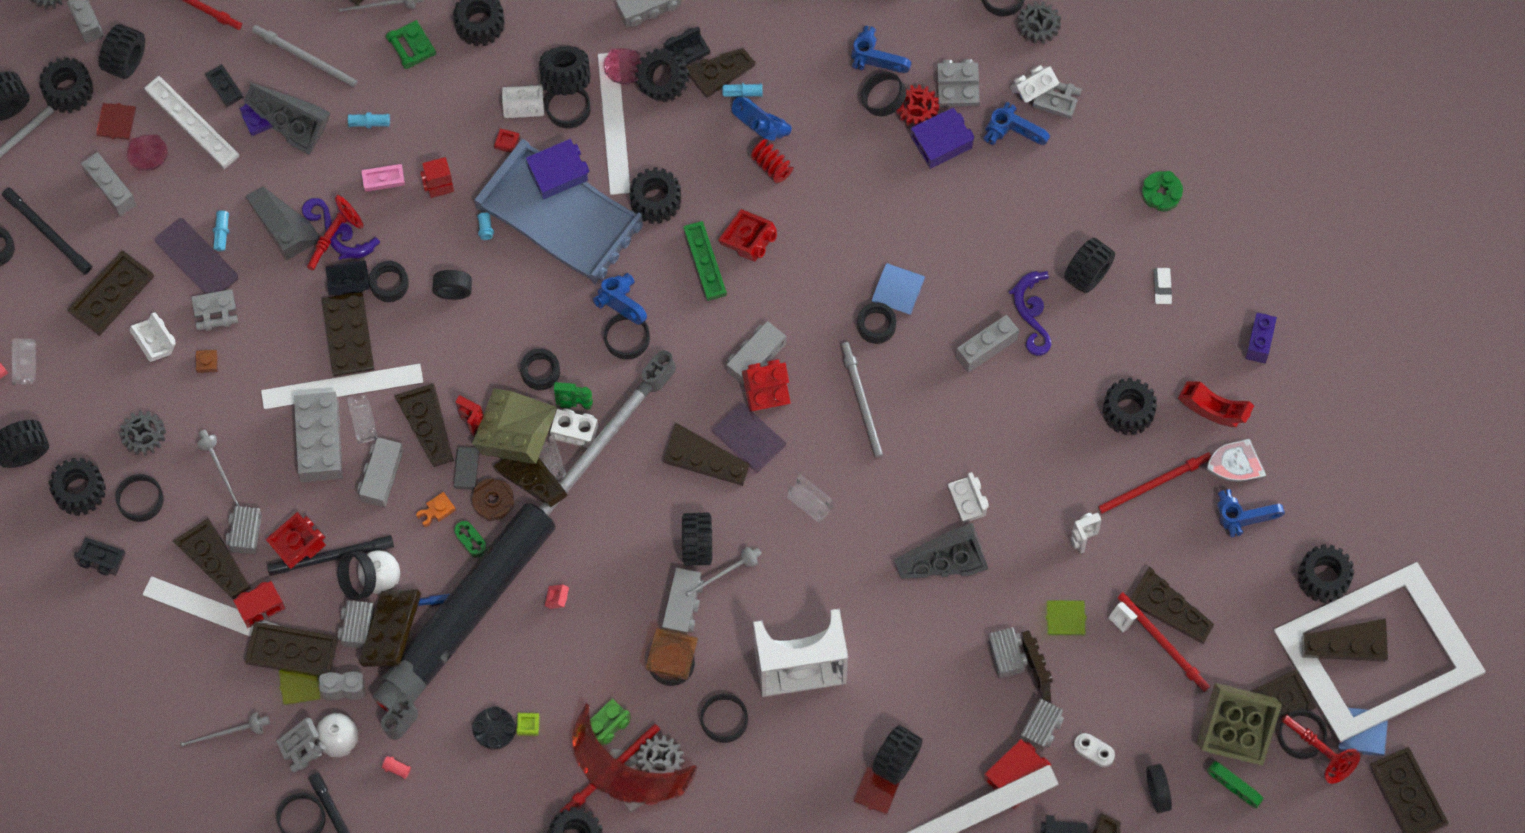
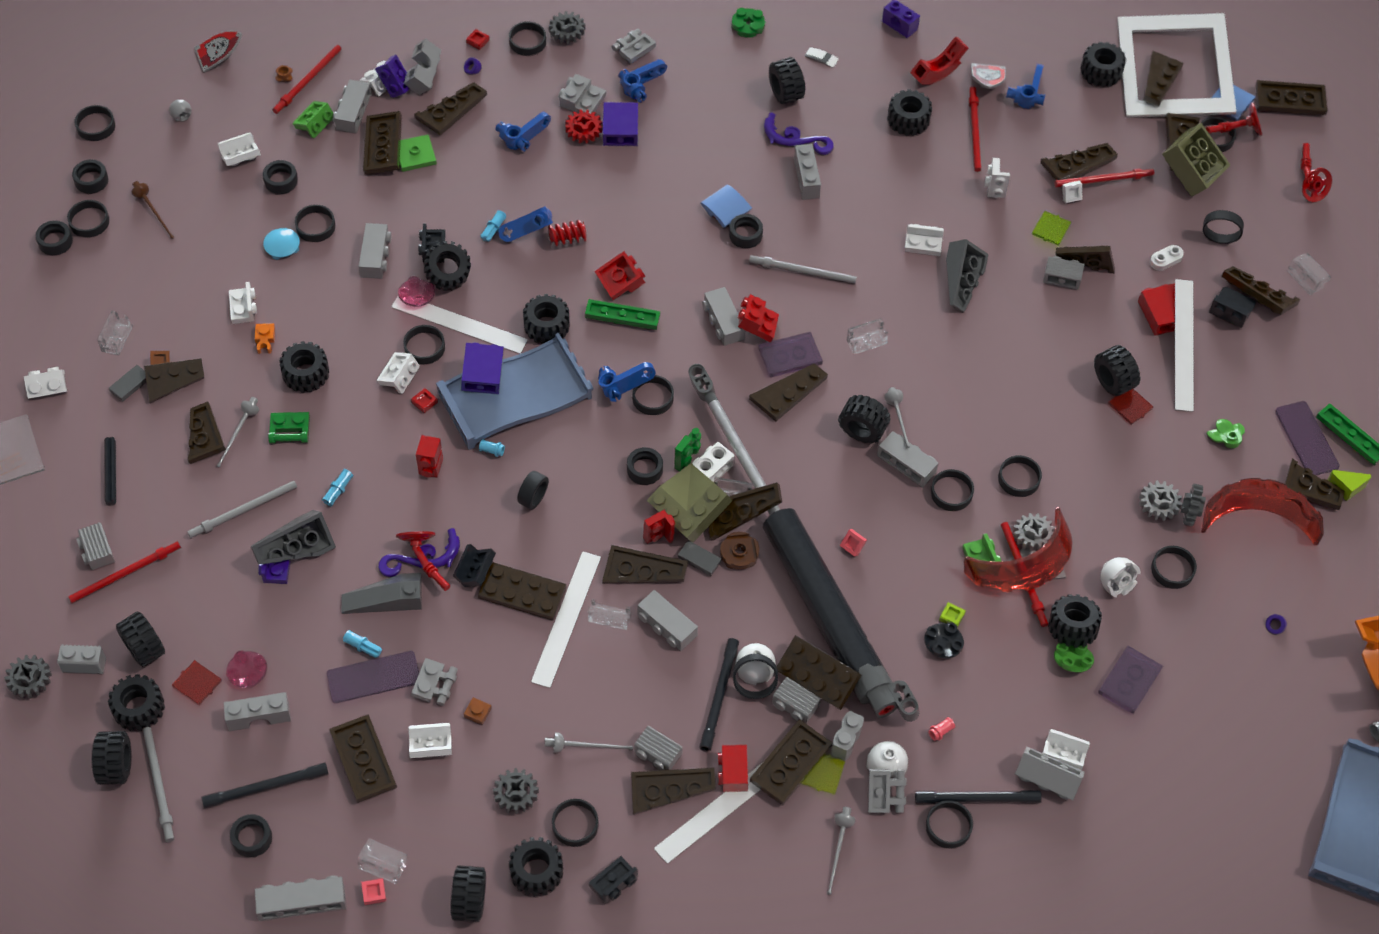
camera: 65 degrees left, 10 degrees down
(191, 122) = (241, 623): white tile -> none
(224, 85) = (226, 580): black plate -> none
(296, 540) = (694, 710): red plate -> none
(318, 437) = (606, 652): light grey brick -> none
(383, 177) = (397, 500): bright pink plate -> none
(388, 296) = (496, 525): black tyre -> none
(433, 600) = (807, 626): blue pin -> none
(439, 508) = (723, 596): orange plate -> none
(474, 536) = (765, 583): green beam -> none
(564, 70) = (396, 327): black tyre -> none
(671, 654) = (951, 481): clear orange plate -> none
(720, 71) = (467, 231): dark brown wing -> none
(803, 662) = (1006, 388): white piece -> none
(872, 82) = (550, 128): black tyre -> none
(1035, 84) = (614, 50): white bracket -> none
(1042, 724) = (1132, 277): light grey brick -> none
(1235, 784) = (1236, 187): green beam -> none

